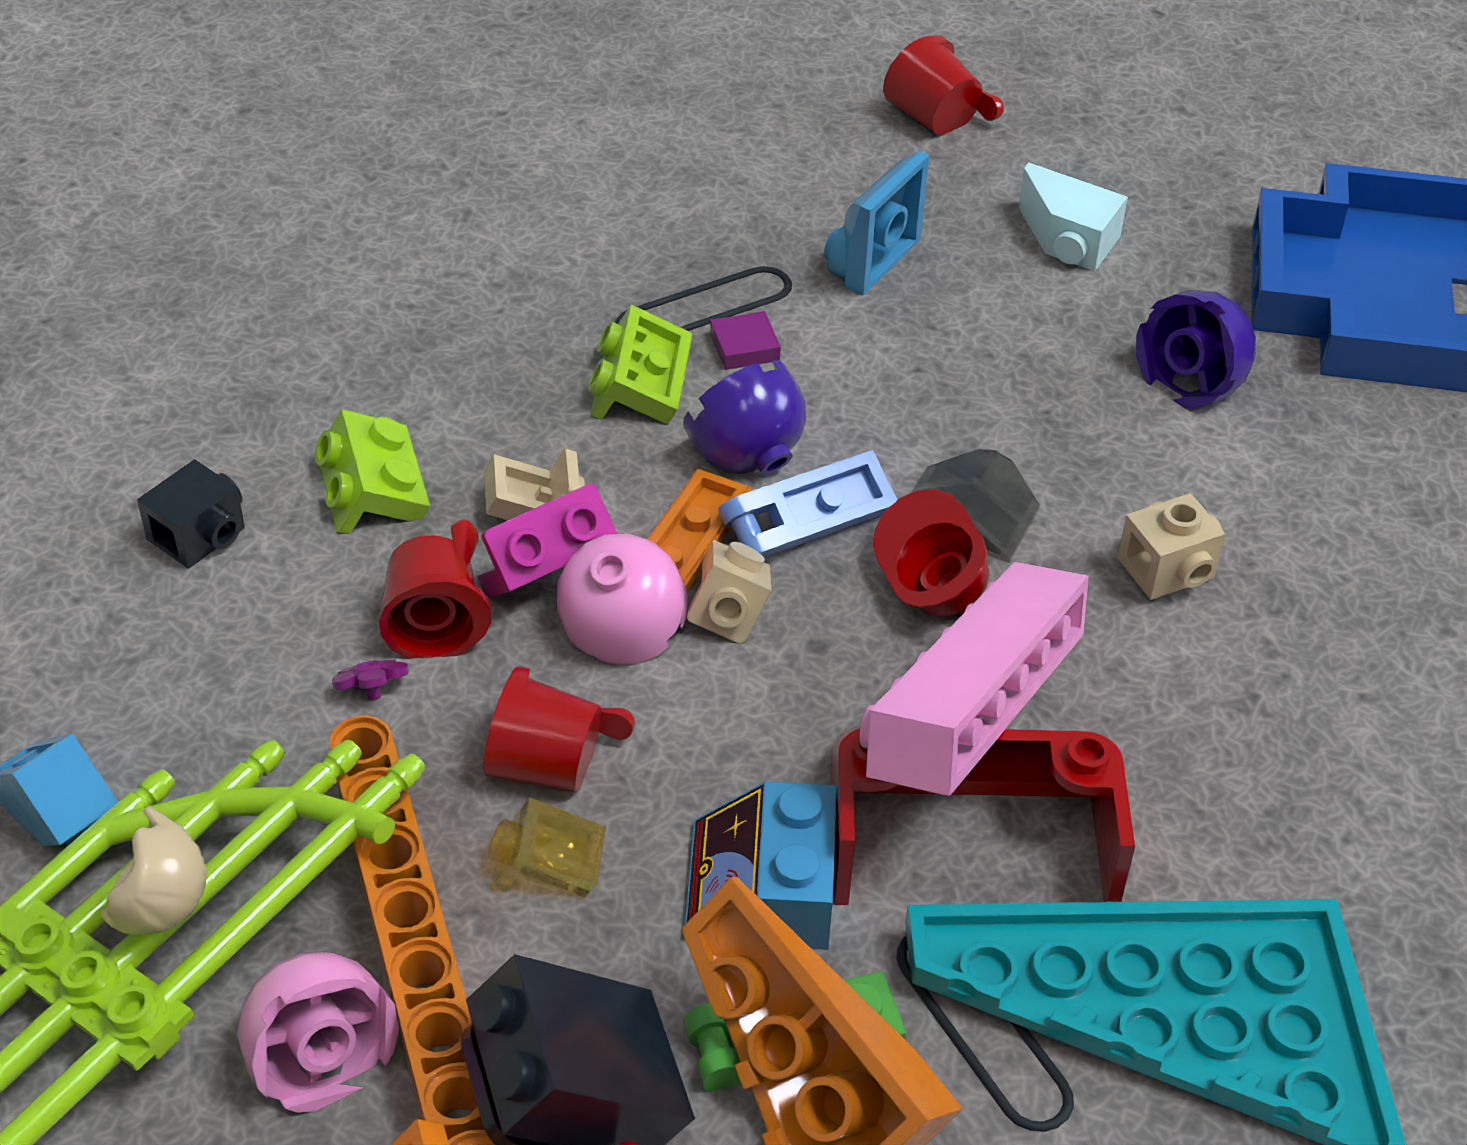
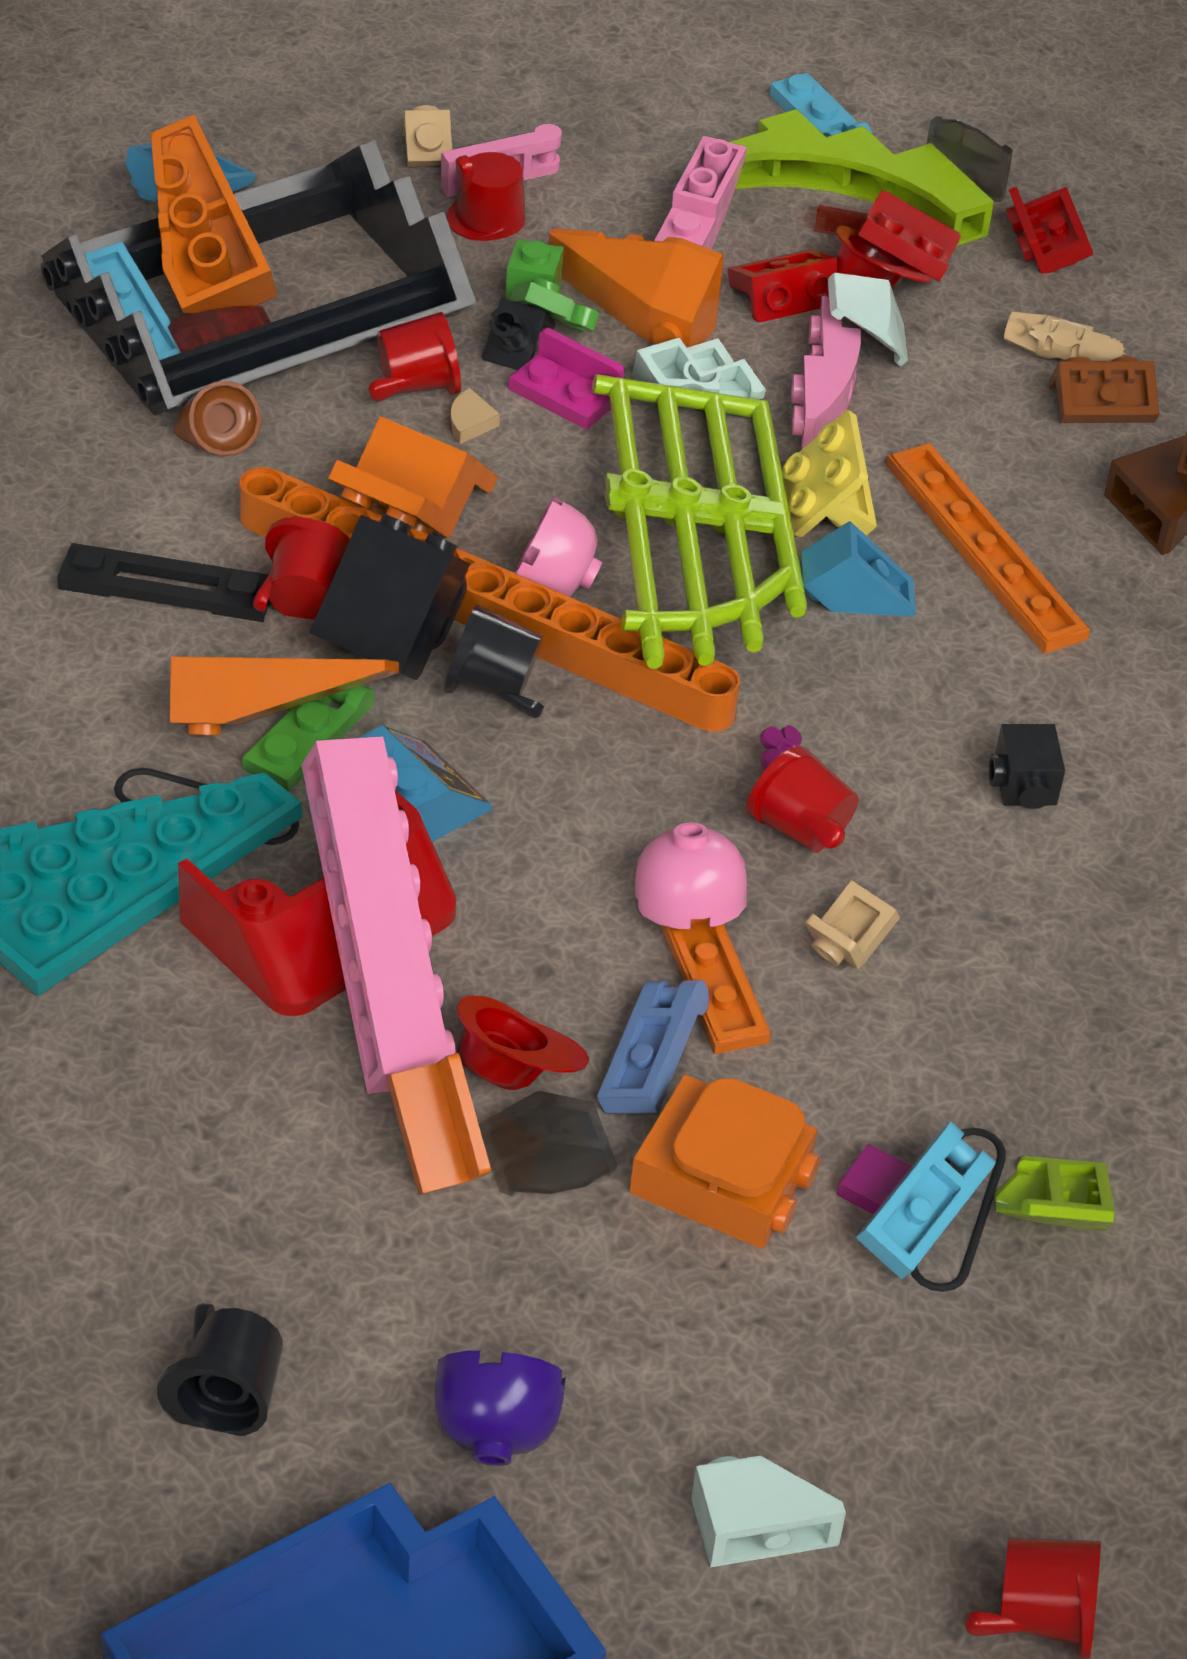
camera: 135 degrees right, 0 degrees up
(160, 882) = (690, 511): tan hair -> none
(370, 469) = (973, 877): lime bracket -> none
(527, 919) = (496, 658): none -> black hat
(543, 539) = (775, 876): dark pink bracket -> none
(547, 733) = (627, 767): red hat -> none
(547, 847) = (548, 720): clear yellow bracket -> none
(639, 248) = (1058, 1193): none -> lime slope
(640, 366) = (909, 1085): lime bracket -> none
(731, 590) = (635, 946): tan bracket -> none
(737, 289) = (925, 1201): none -> medium azure plate
(749, 420) = (768, 1052): dark purple cylinder -> none
(860, 390) = (727, 1158): none -> orange brick
(880, 225) = (891, 1337): dark azure slope -> none
(1062, 539) = (439, 1125): none -> orange panel
(1171, 546) = (355, 1177): tan brick -> none
(1397, 478) = (226, 1372): none -> black hat

